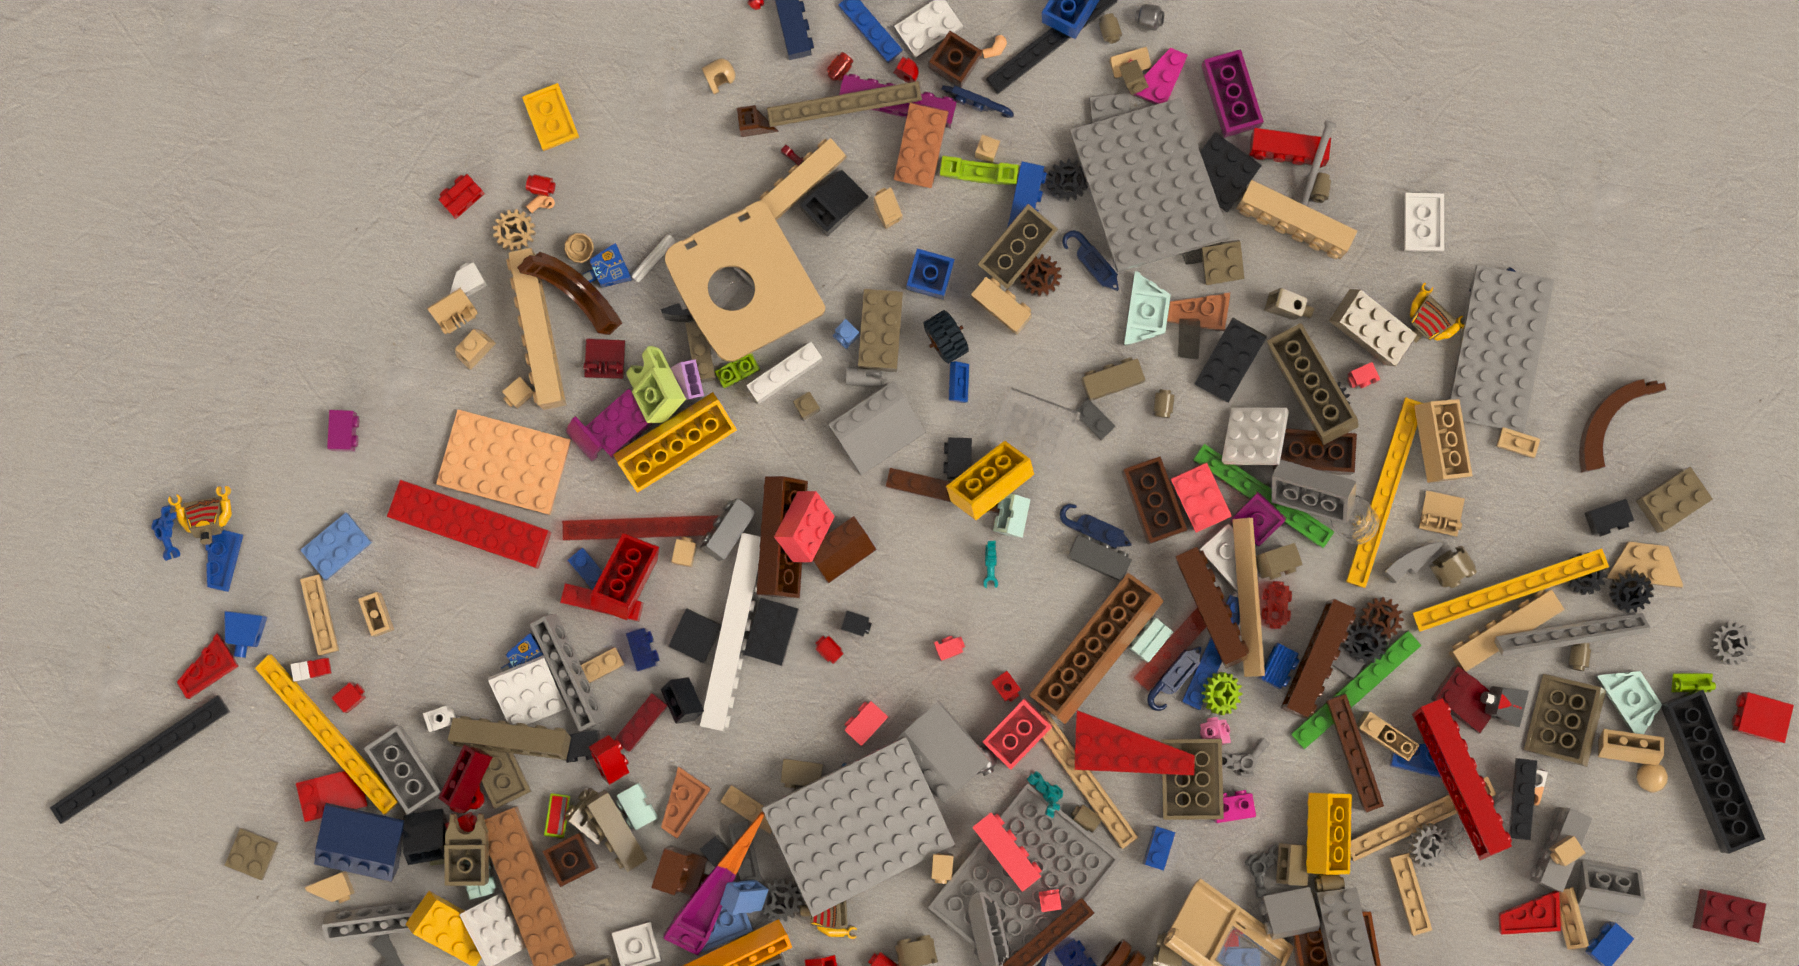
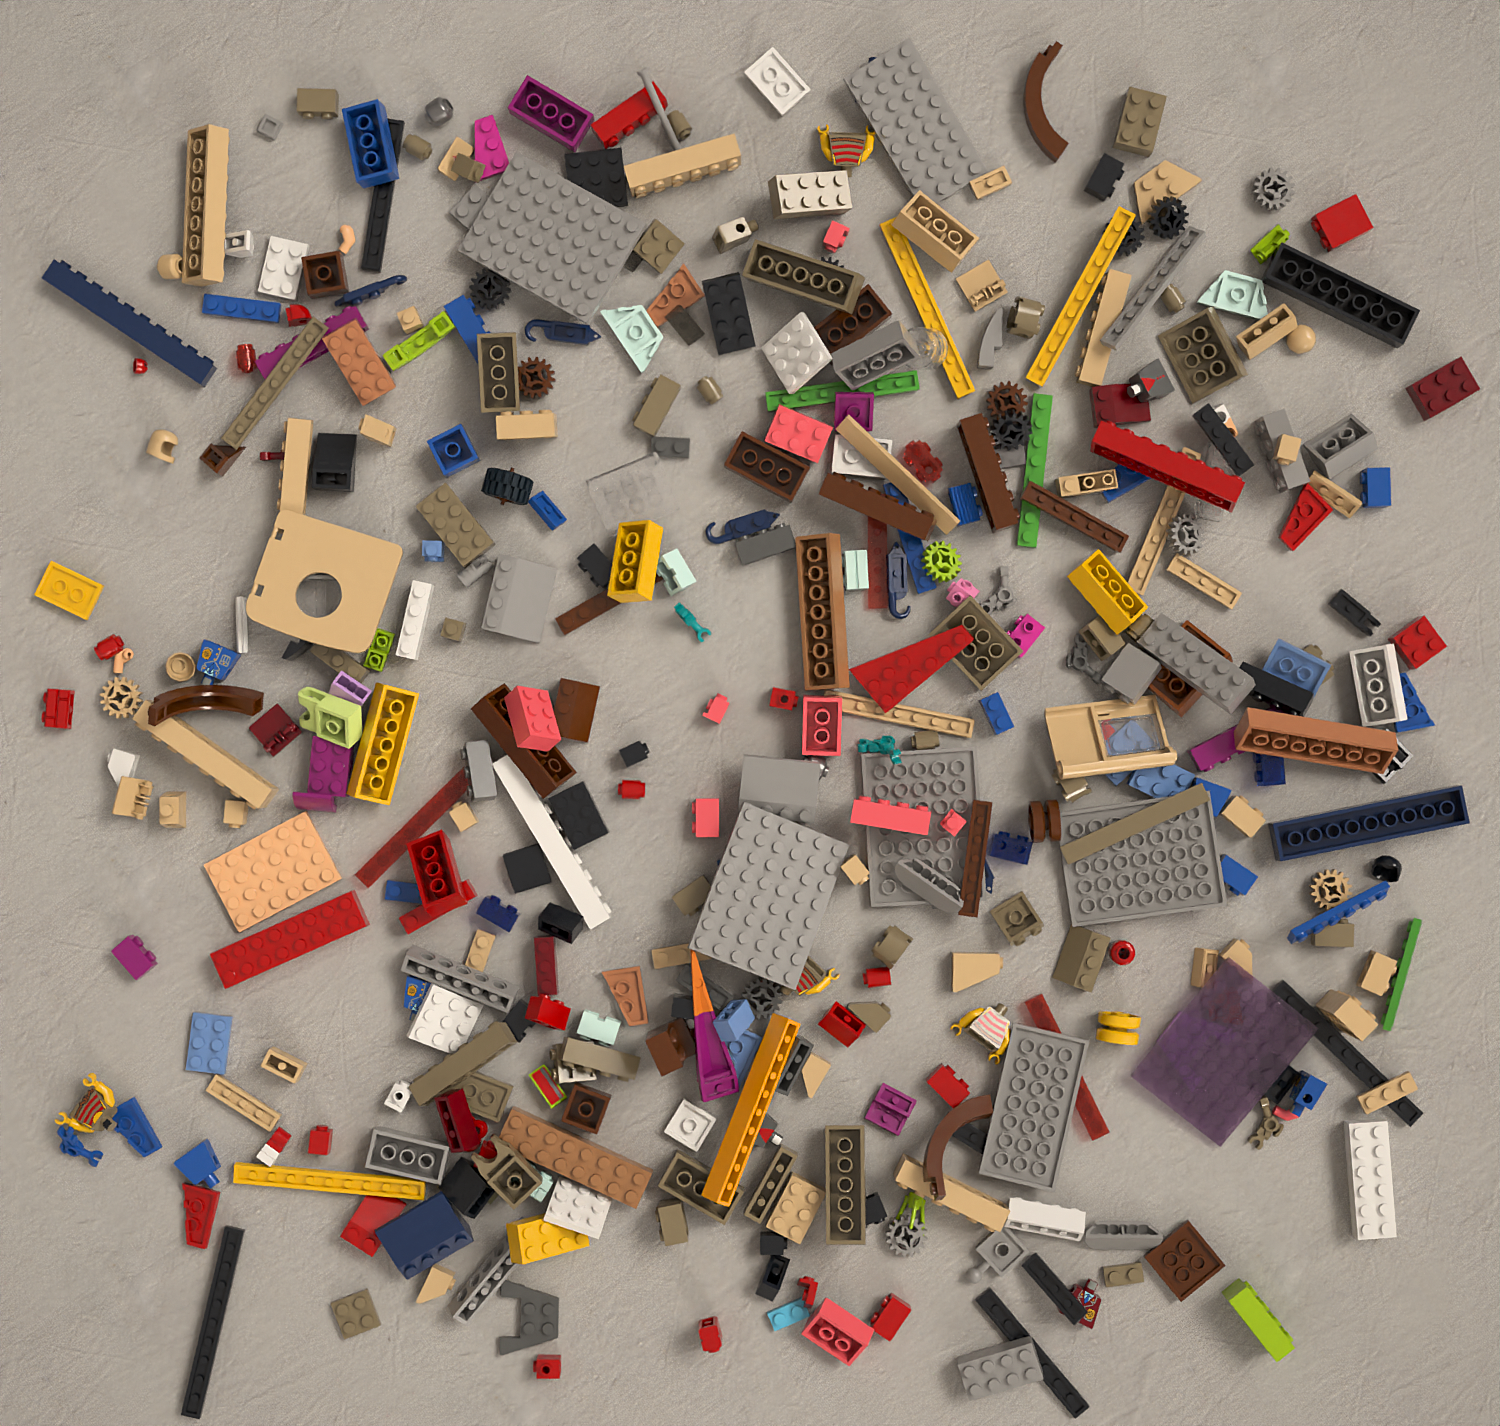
camera: 40 degrees left, 5 degrees up
(1278, 560) = (895, 428): dark tan brick -> none

